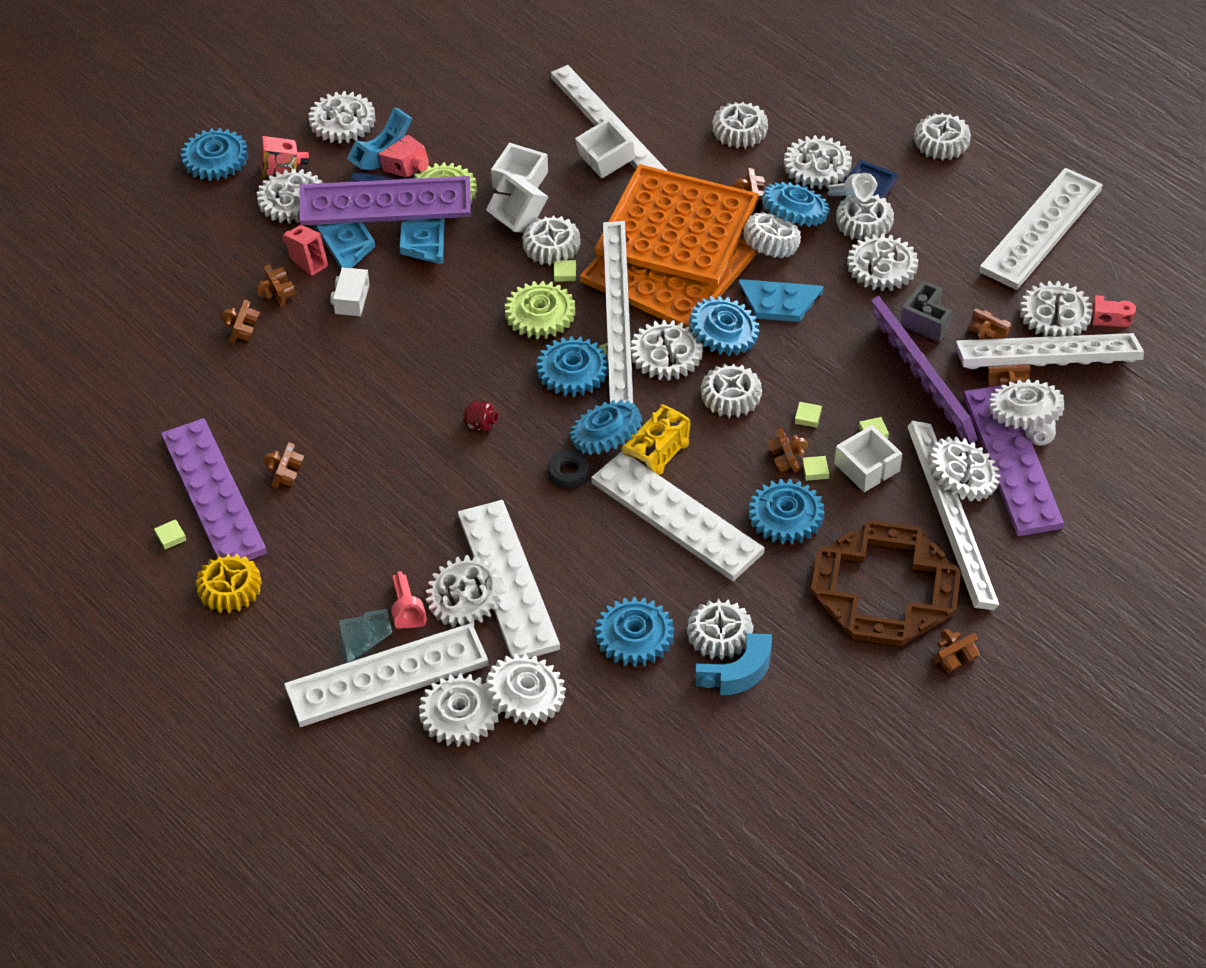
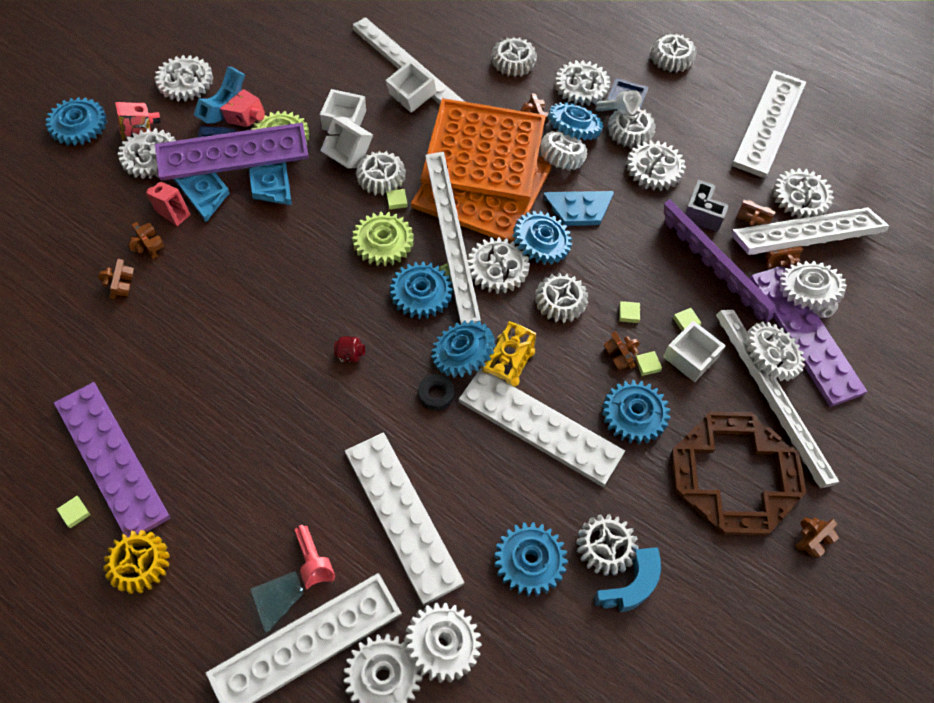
camera: 15 degrees left, 10 degrees up
(275, 462) = (175, 433): dark orange hips -> none
(350, 291) = (213, 239): white brick -> none
(464, 591) = (372, 558): white gear -> none
(1112, 313) = (846, 190): coral leg -> none

